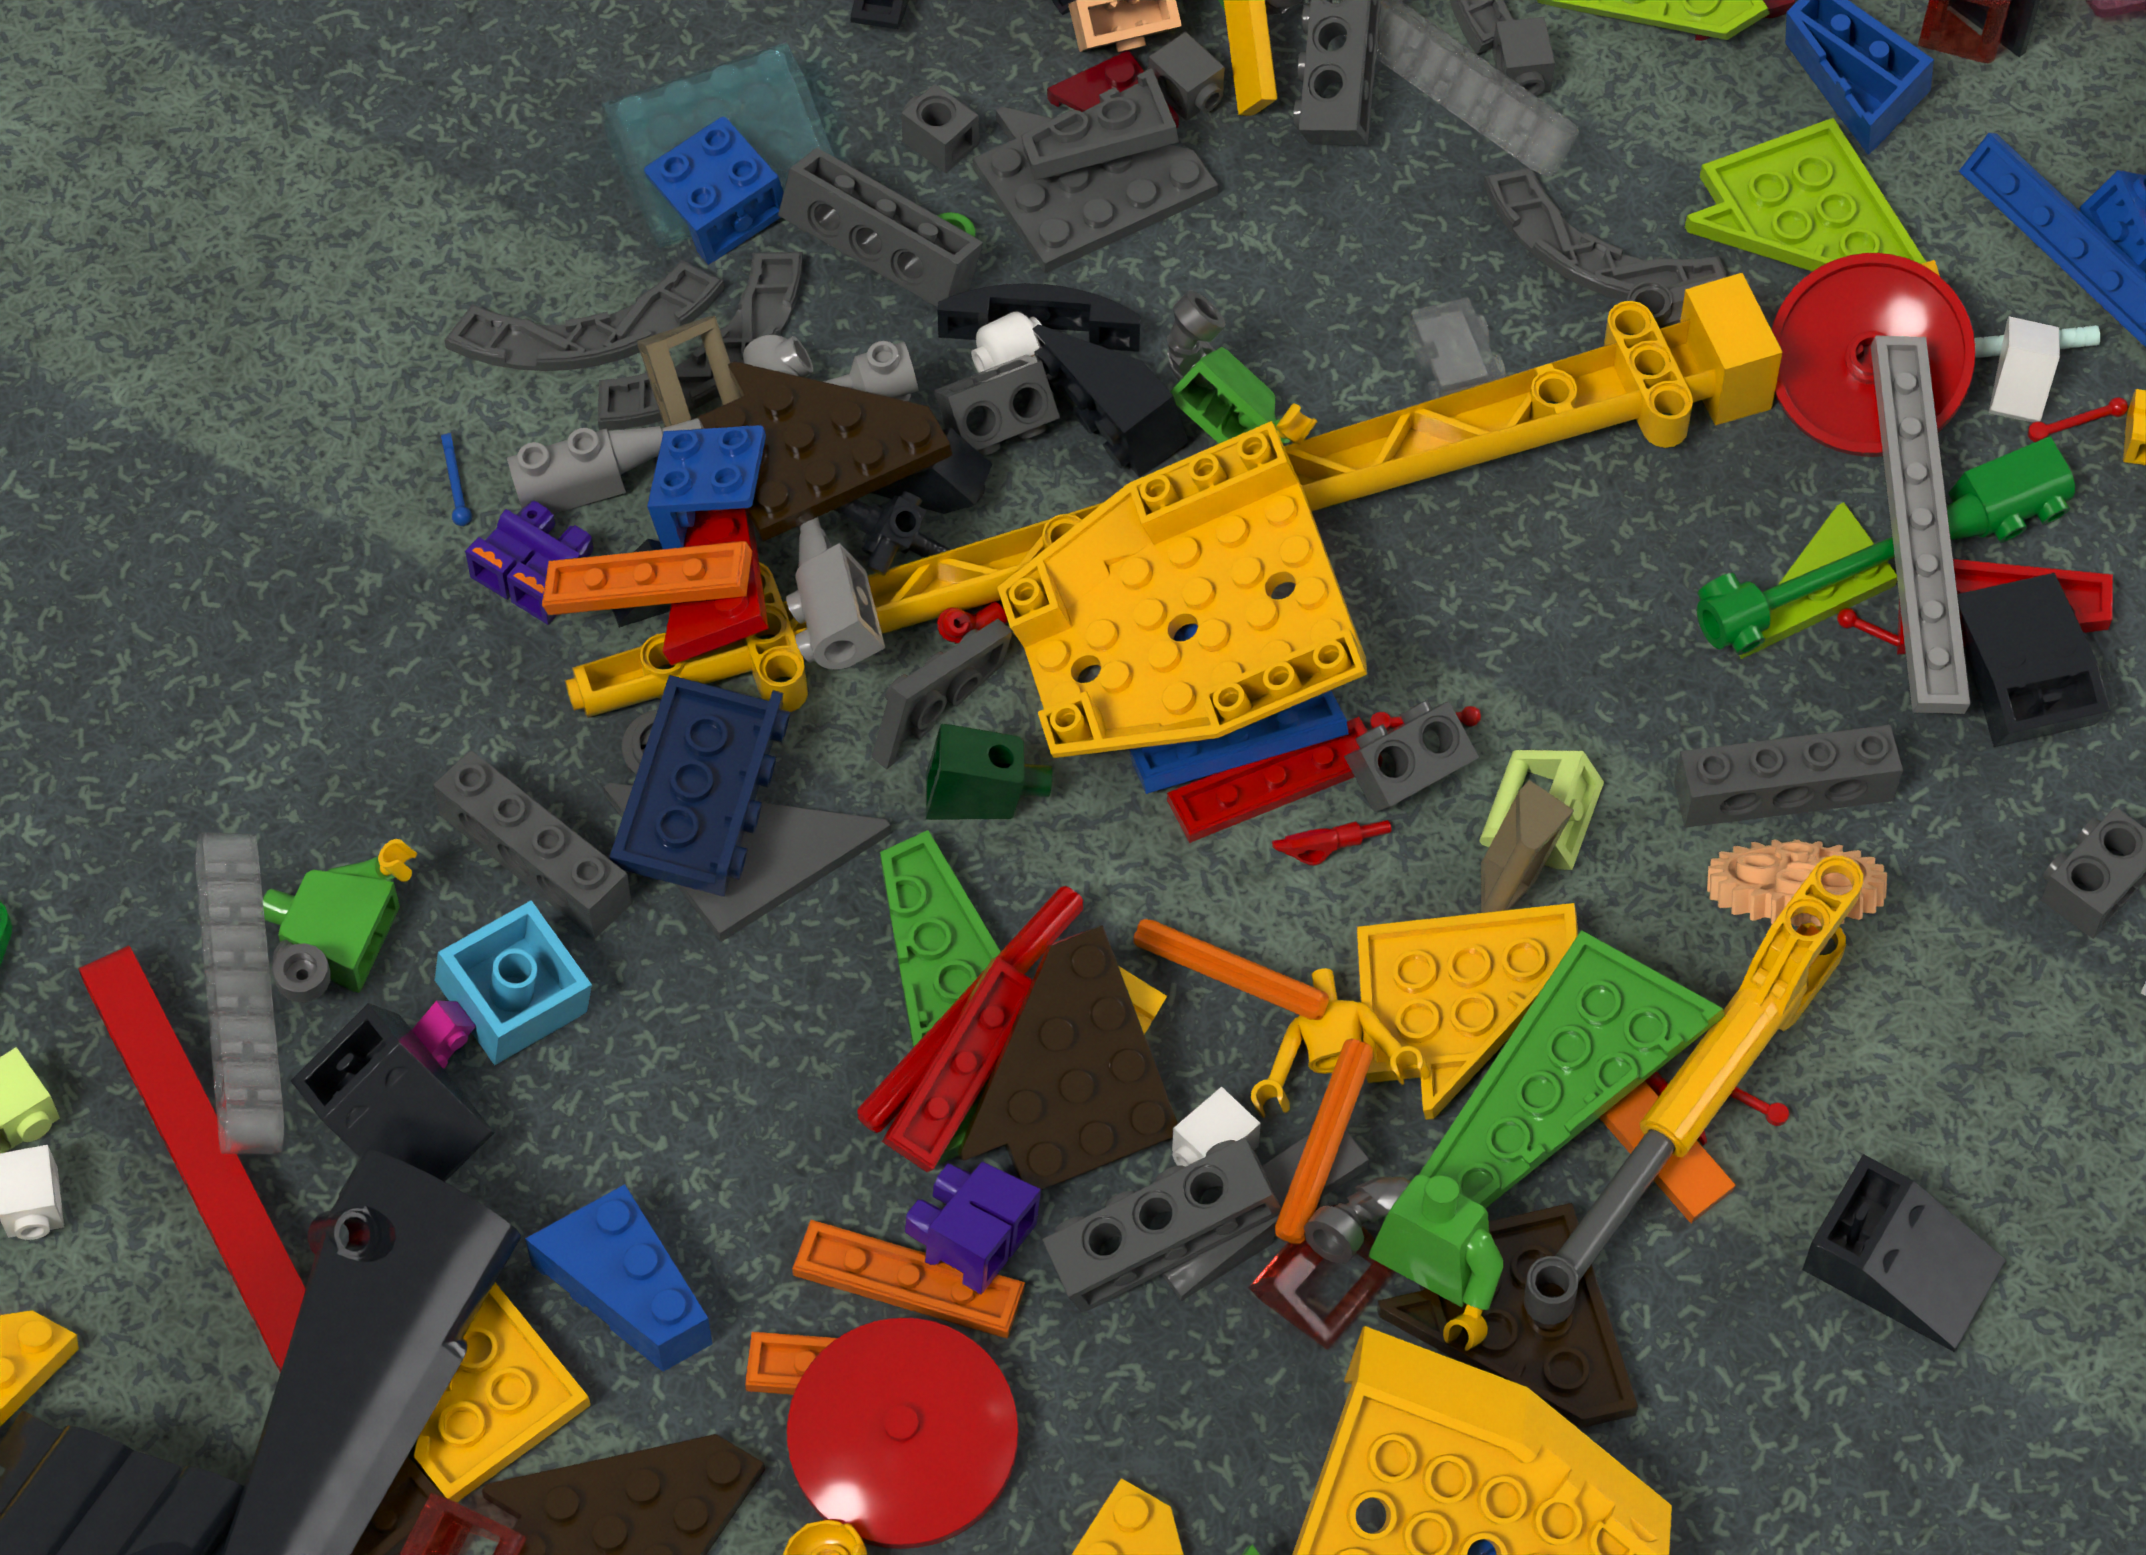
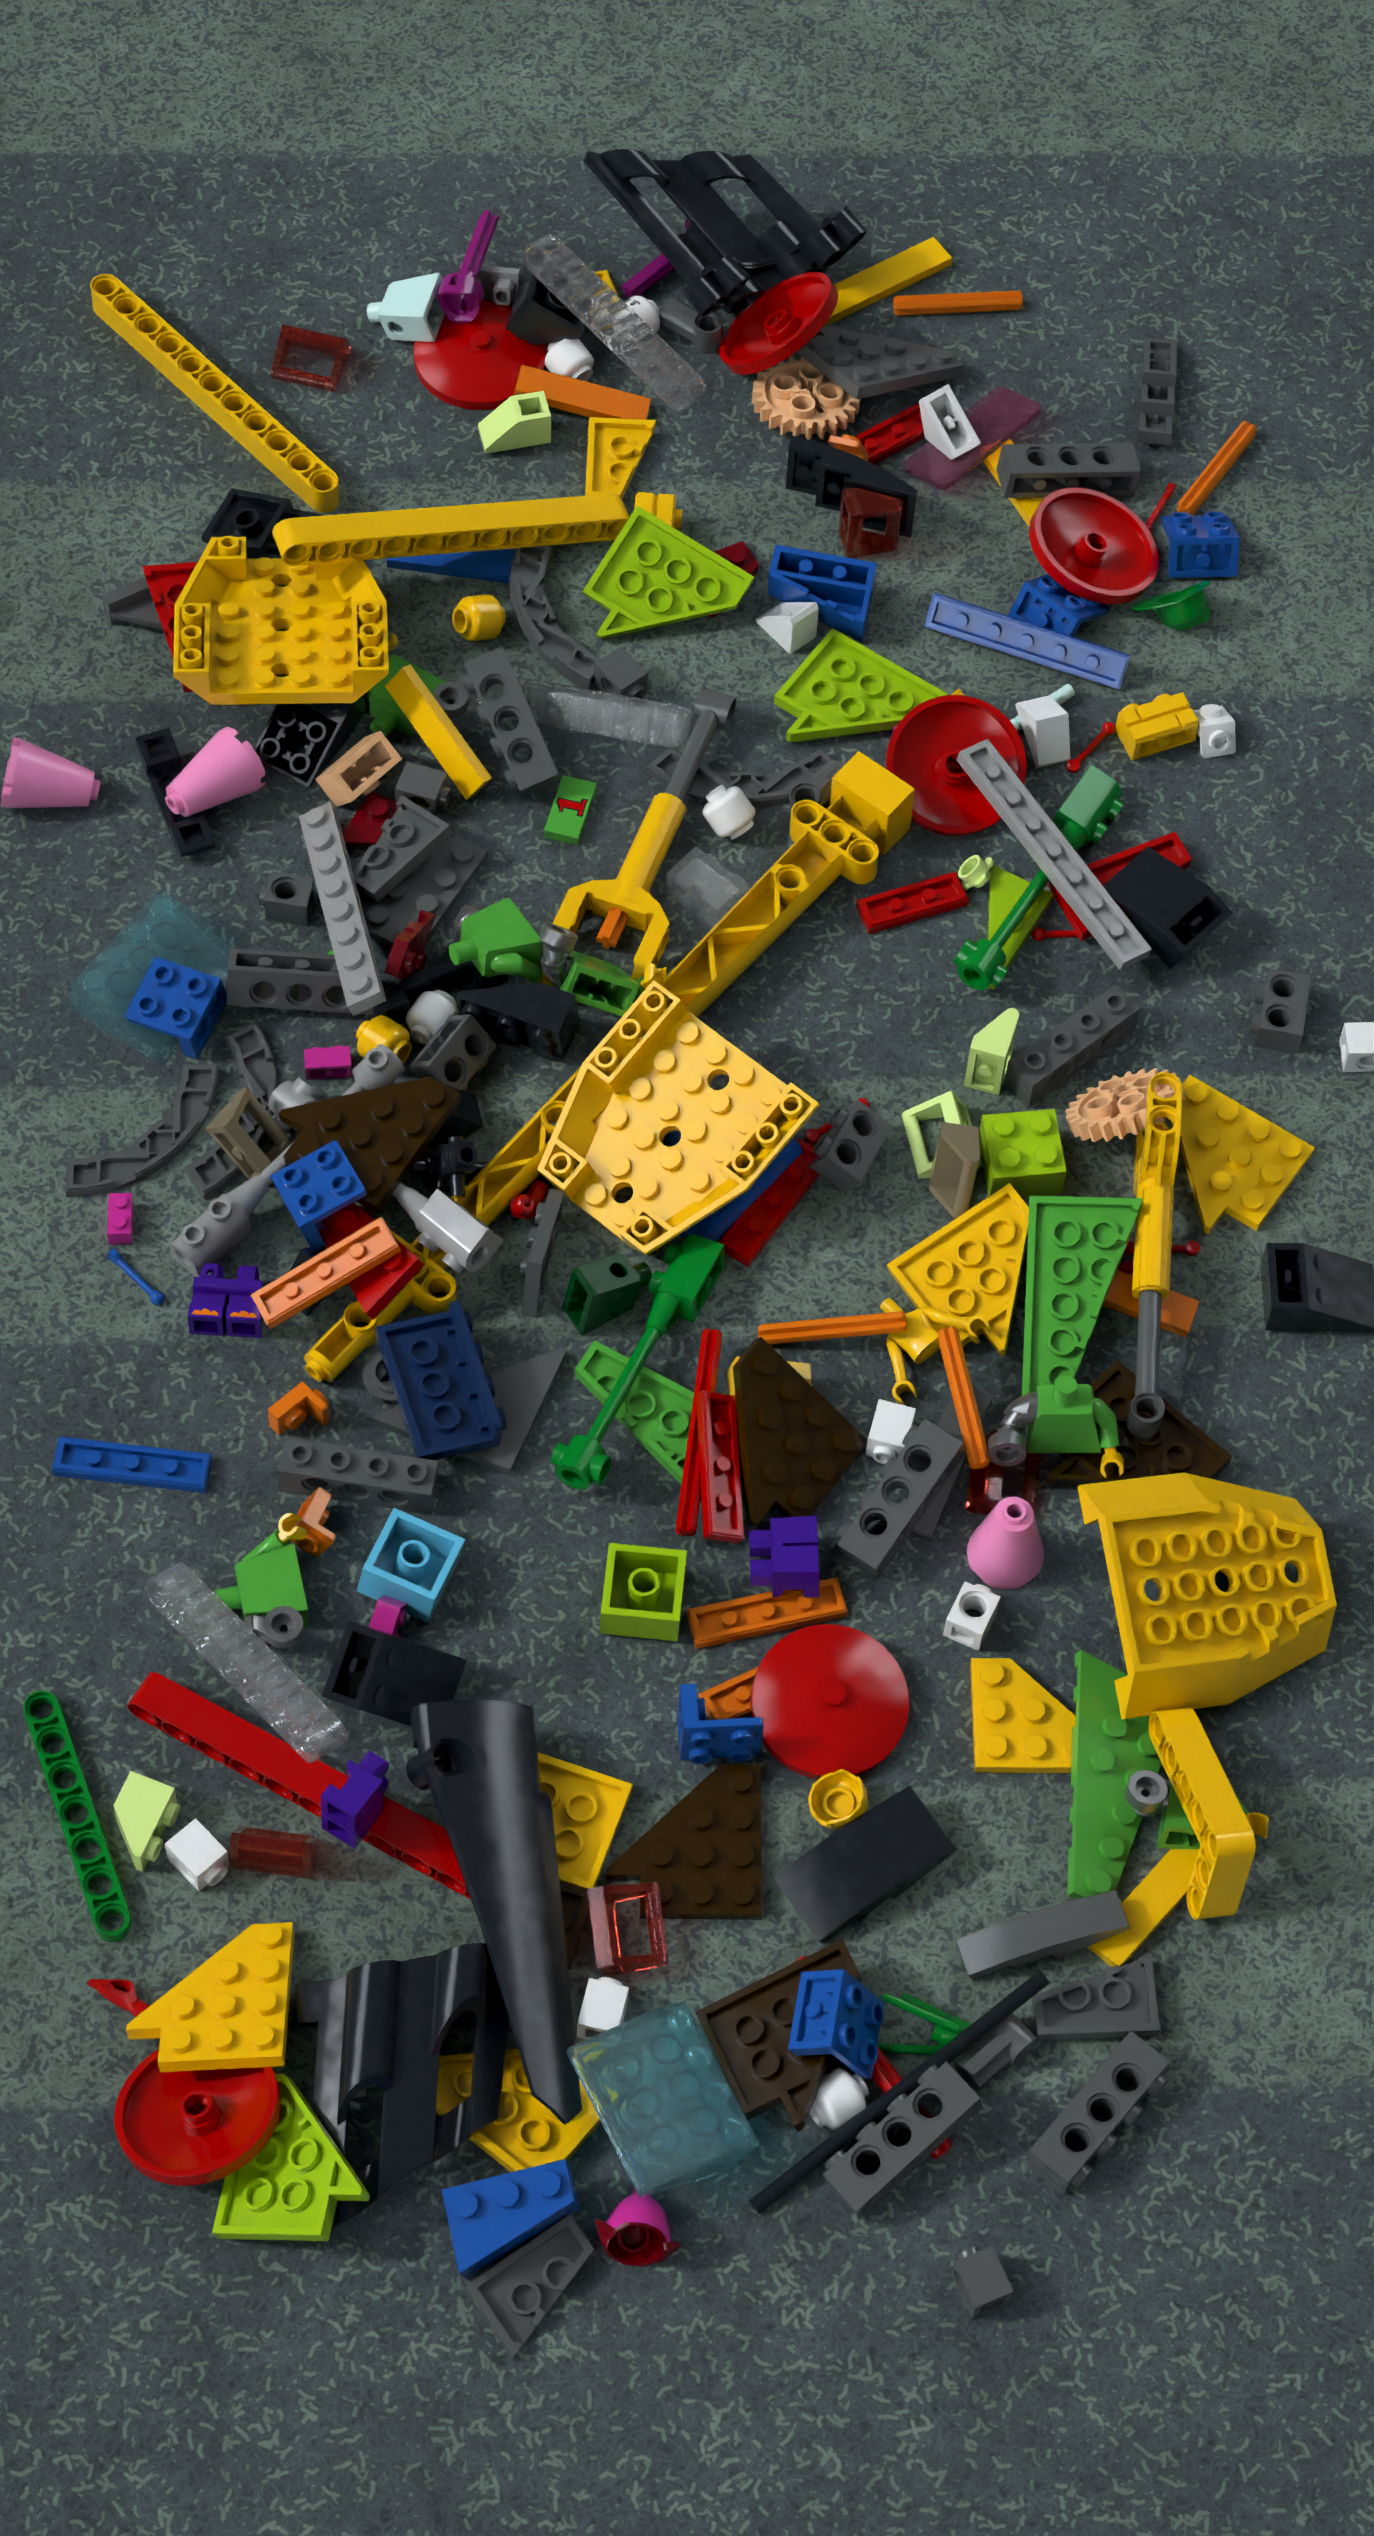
camera: 35 degrees left, 0 degrees up
(116, 1235) = (273, 1852): none -> clear red tile
(229, 1226) = (359, 1803): none -> dark purple hips
(294, 694) = (132, 1464): none -> blue tile
(436, 868) = (313, 1517): none -> orange bracket
(483, 402) = (120, 1218): none -> dark pink piece
(519, 722) = (293, 1408): none -> orange bracket
(624, 1276) = (605, 1702): blue wedge -> none
(708, 1392) = (708, 1739): none -> blue bracket
(765, 1167) = (643, 1592): none -> lime brick
(845, 337) = (327, 1062): none -> dark pink piece
(932, 347) = (385, 1032): none -> yellow head
(979, 166) = (342, 909): none -> light grey plate
(1029, 250) = (408, 947): none -> dark red wing
(1073, 826) = (676, 1293): none -> green bar
(1135, 294) = (498, 942): none -> bright green torso
(1151, 1446) = (968, 1629): none -> white brick
(1262, 1362) = (1007, 1546): none -> bright pink cone
(1316, 845) = (827, 1228): red hand -> none
(1349, 320) = (627, 898): none -> yellow piece
(1354, 185) = (570, 810): none -> bright green tile
(1543, 276) = (729, 812): none -> white head
(1627, 877) = (1023, 1152): none -> lime brick
(1657, 728) = (991, 1052): none -> yellowish green tile
(1708, 500) = (912, 902): none -> red tile
(1785, 92) = (791, 624): none -> white slope
(1813, 500) = (975, 872): none -> yellowish green plate
(1914, 1025) = (1235, 1157): none -> yellow wing

